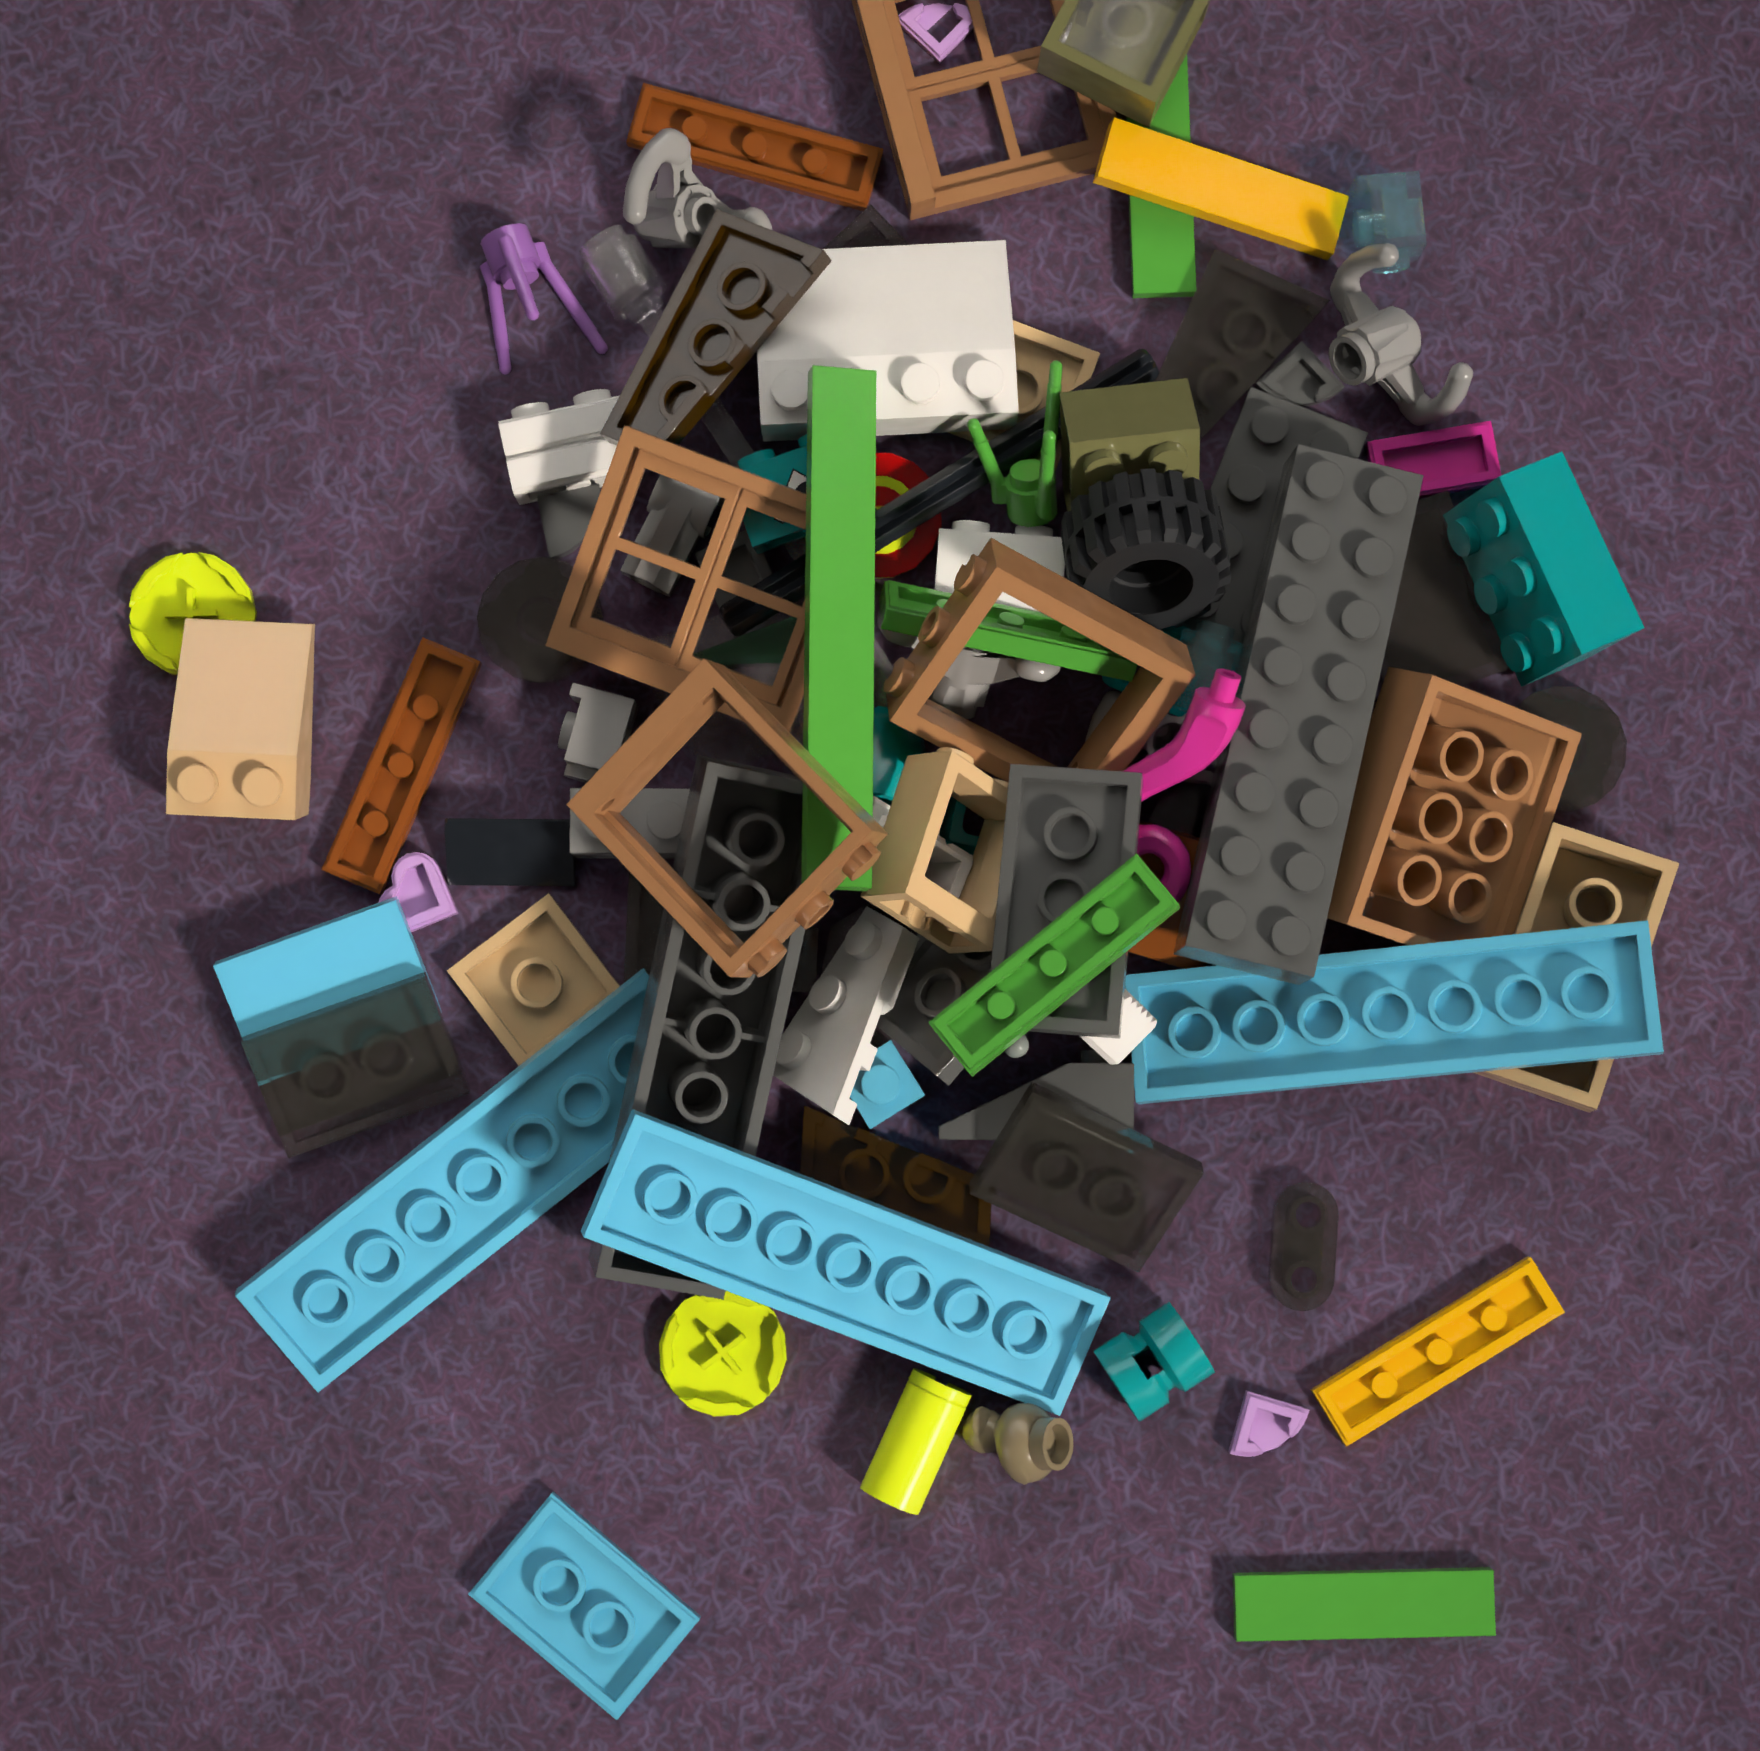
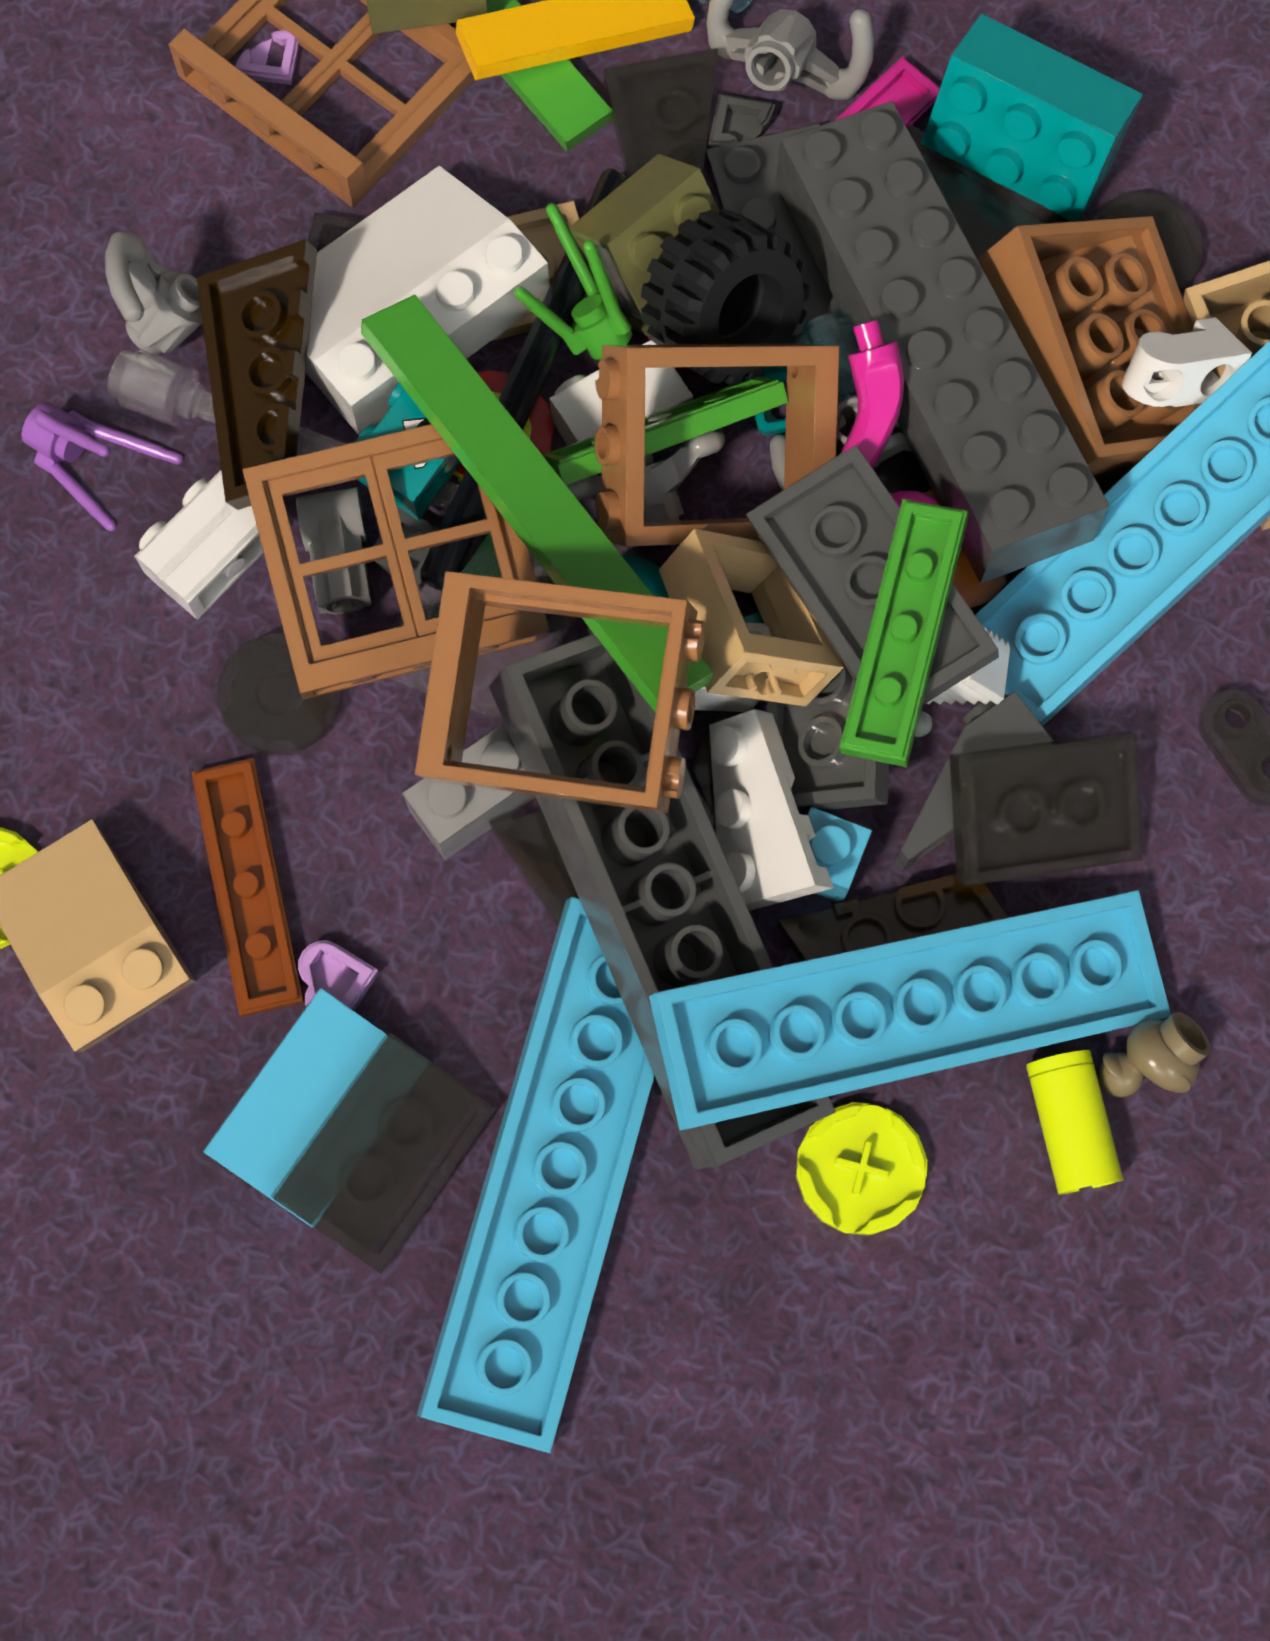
camera: 35 degrees left, 10 degrees down
(509, 852) = (387, 889): black slope -> none
(533, 979) = (480, 979): tan tile -> none
(566, 518) = (245, 600): dark grey tile -> none
(584, 1605) = (908, 1469): medium azure tile -> none
(595, 731) = (389, 743): light grey brick -> none
(760, 147) = (204, 227): dark orange tile -> none
(1172, 1347) = (1211, 915): teal wheel -> none
(1486, 896) = (1180, 366): none -> white leg

